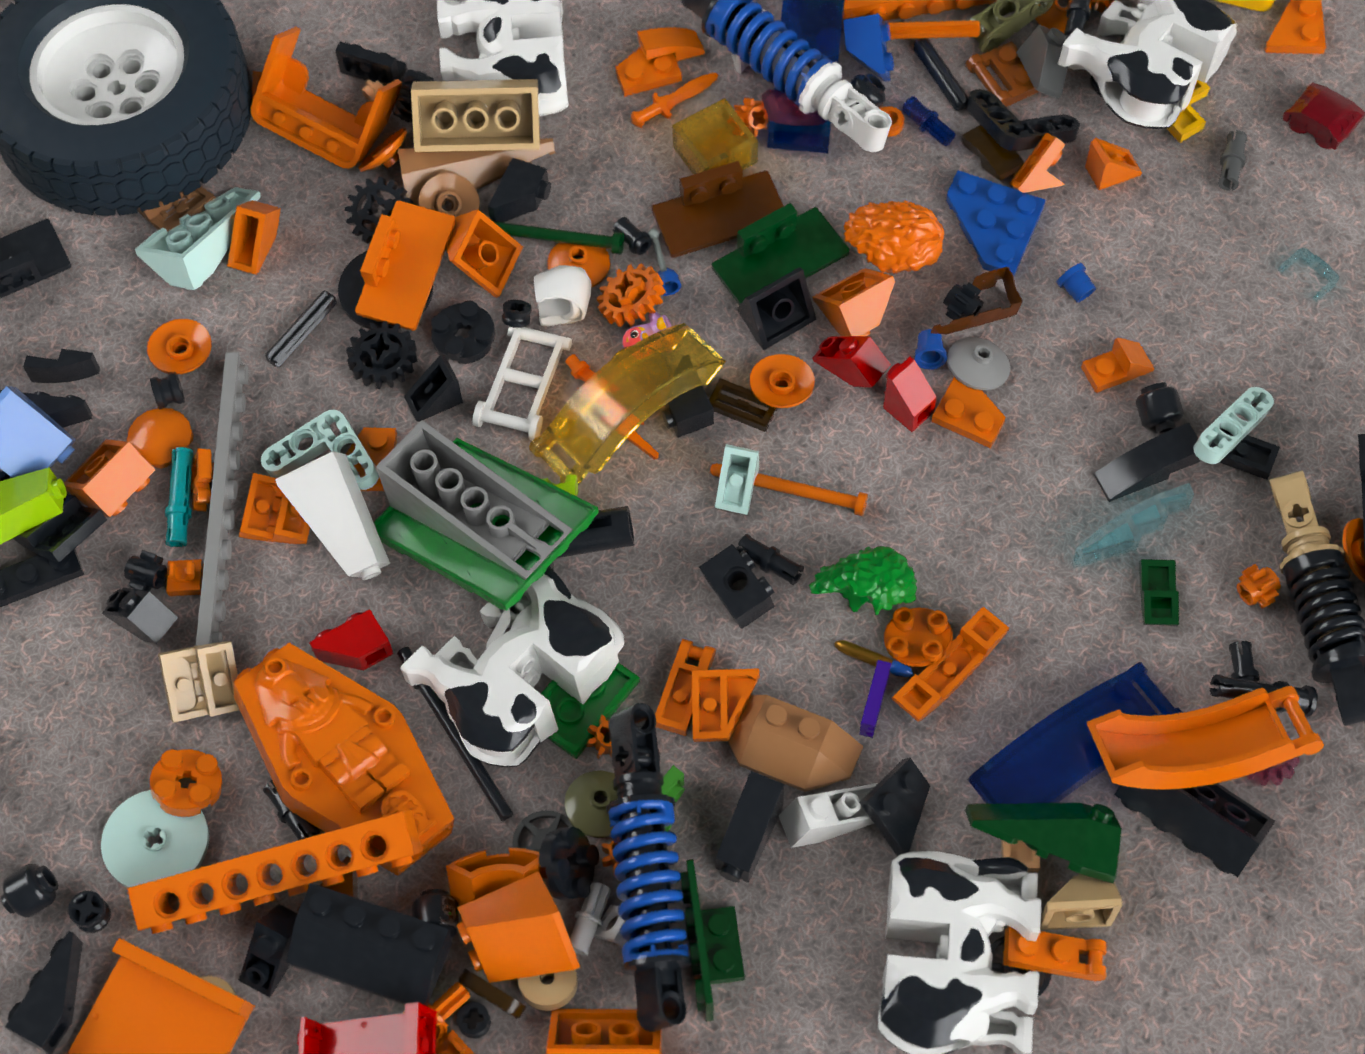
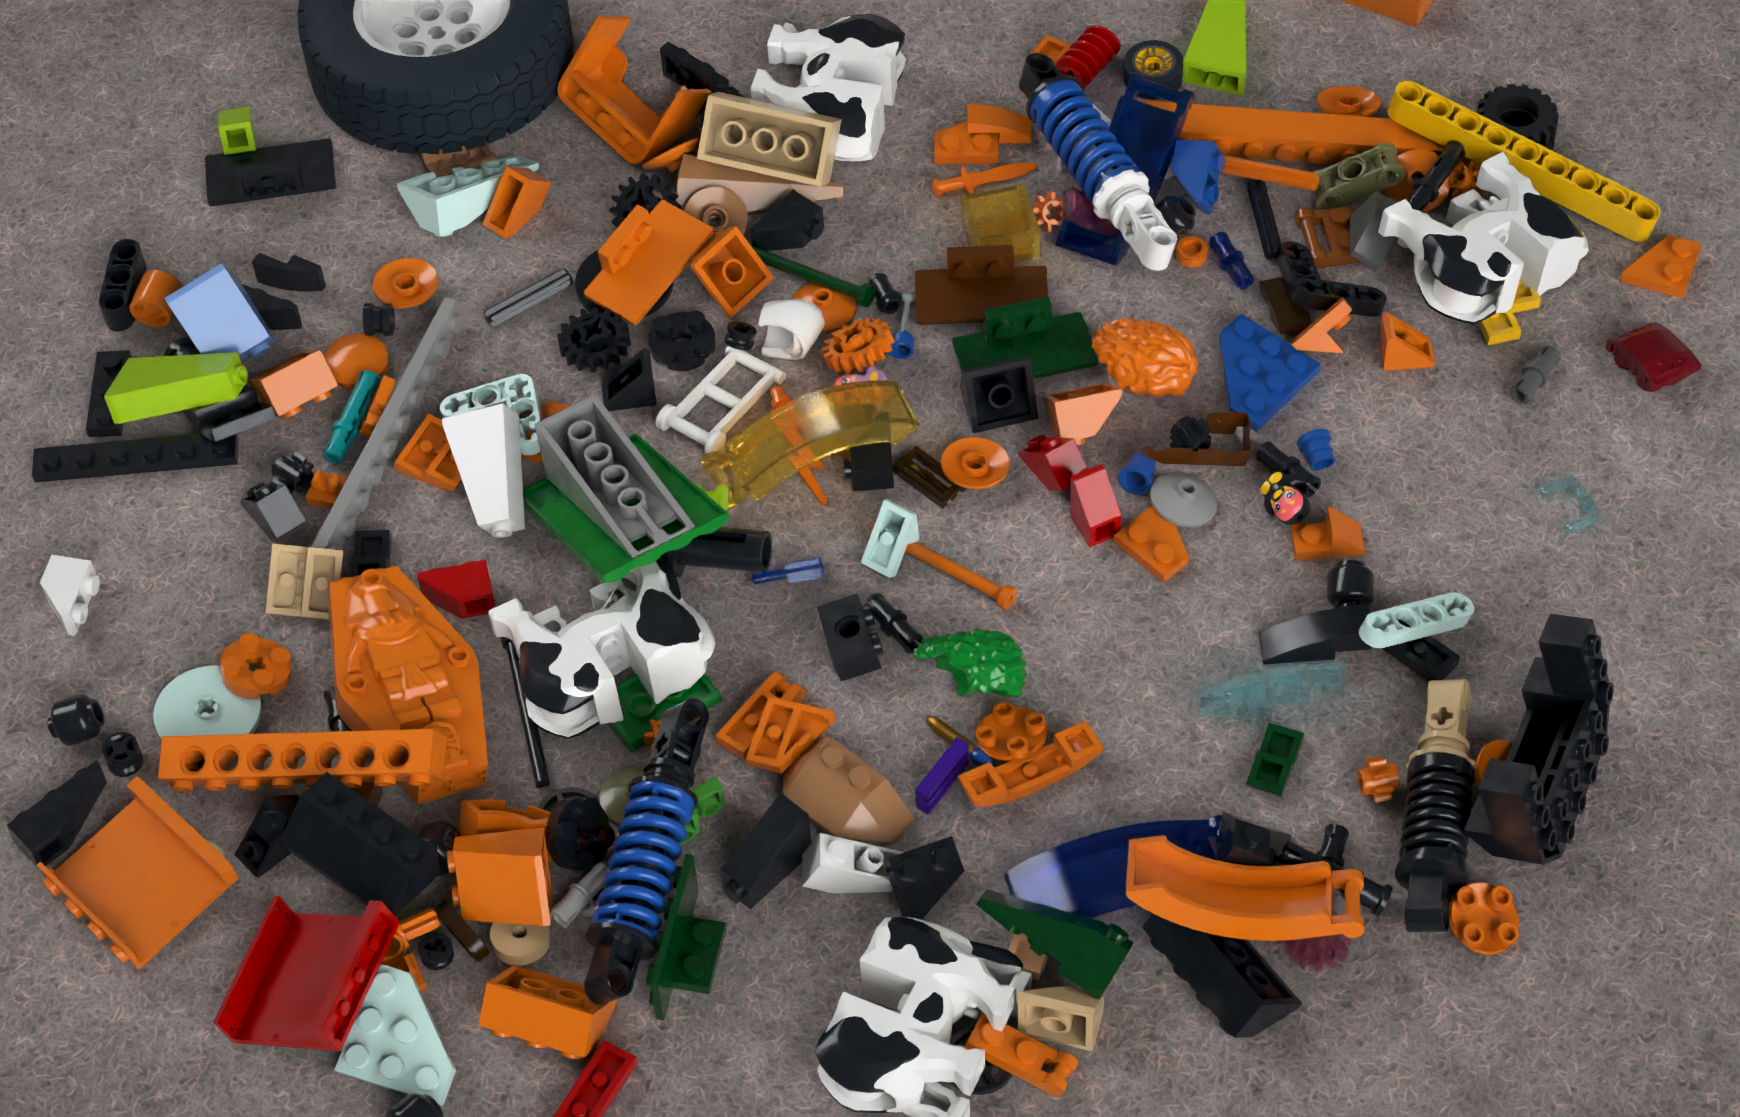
camera: 20 degrees right, 10 degrees down
(252, 633) = (371, 551): none -> black slope
(658, 534) = (794, 572): none -> clear blue axle
(1059, 308) = (1290, 465): none -> black pin
(1073, 340) = (1284, 498): none -> animal
(1177, 685) = (1249, 842): none -> black slope

